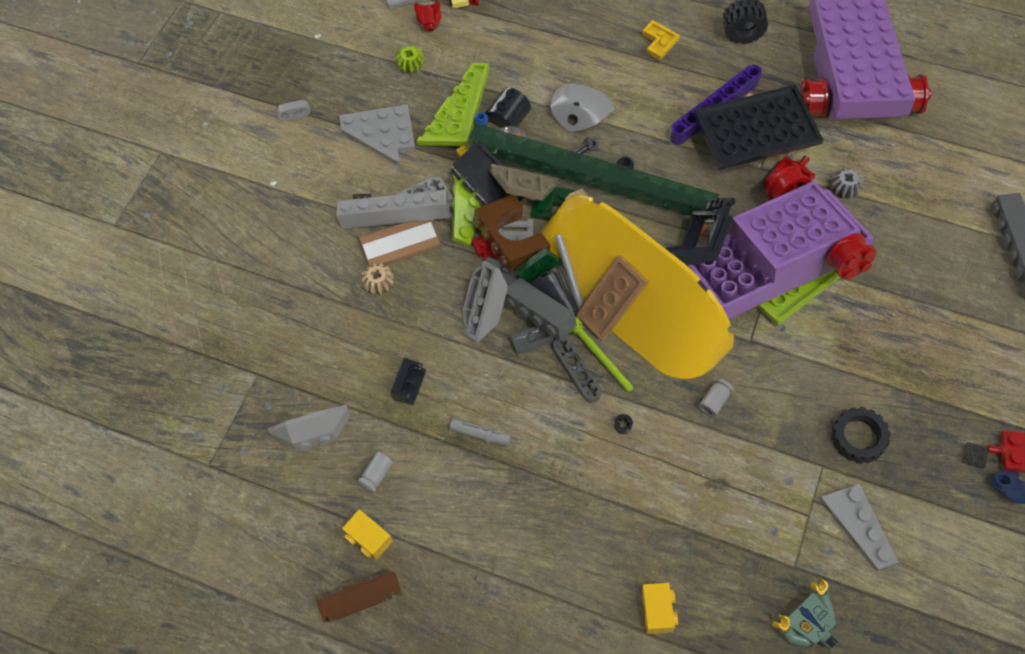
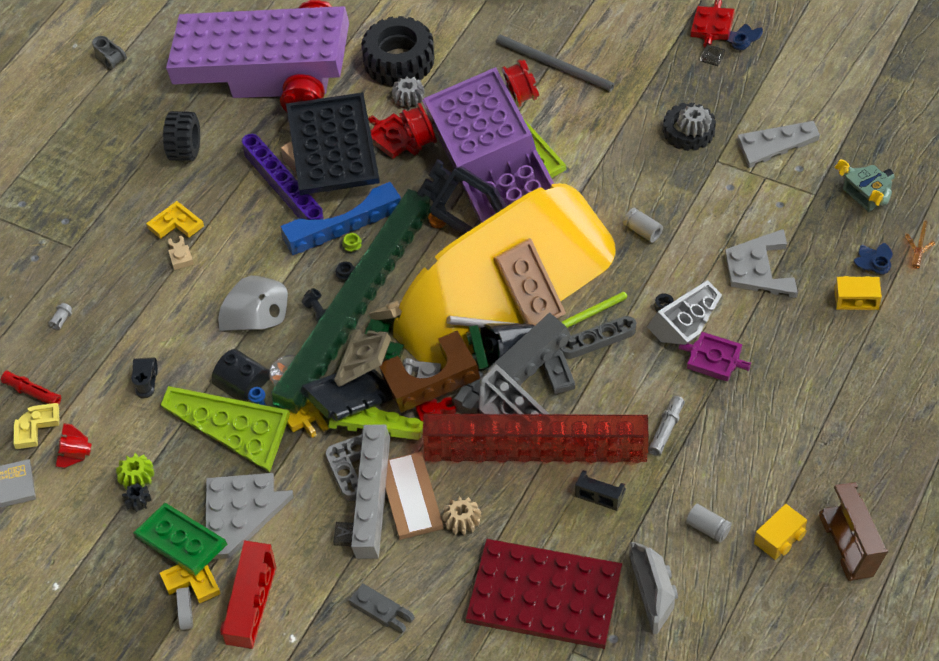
camera: 85 degrees left, 10 degrees down
(295, 235) = (380, 608): none -> dark grey hinge
(301, 145) = (249, 594): none -> red wedge
(309, 350) = (544, 593): none -> dark red plate
(322, 111) = (202, 584): none -> yellow plate
(350, 96) = (180, 538): none -> green tile
(387, 64) = (136, 497): none -> black gear
(449, 325) = (535, 437): none -> clear red brick
(502, 48) = (144, 376): none -> black piece
(563, 471) = (715, 356): none -> magenta plate
(603, 441) = (686, 316): none -> light grey wedge
(627, 50) = (180, 254): none -> tan plate
(657, 127) = (305, 234): none -> blue arch
(657, 161) = (352, 242): none -> lime plate
(684, 502) = (750, 266): none -> light grey wing
(713, 626) = (875, 260): none -> dark blue plate
(852, 428) = (694, 121): none -> light grey gear
(899, 147) = (397, 34): none -> black tyre
(921, 305) = (554, 62): none -> dark grey piece

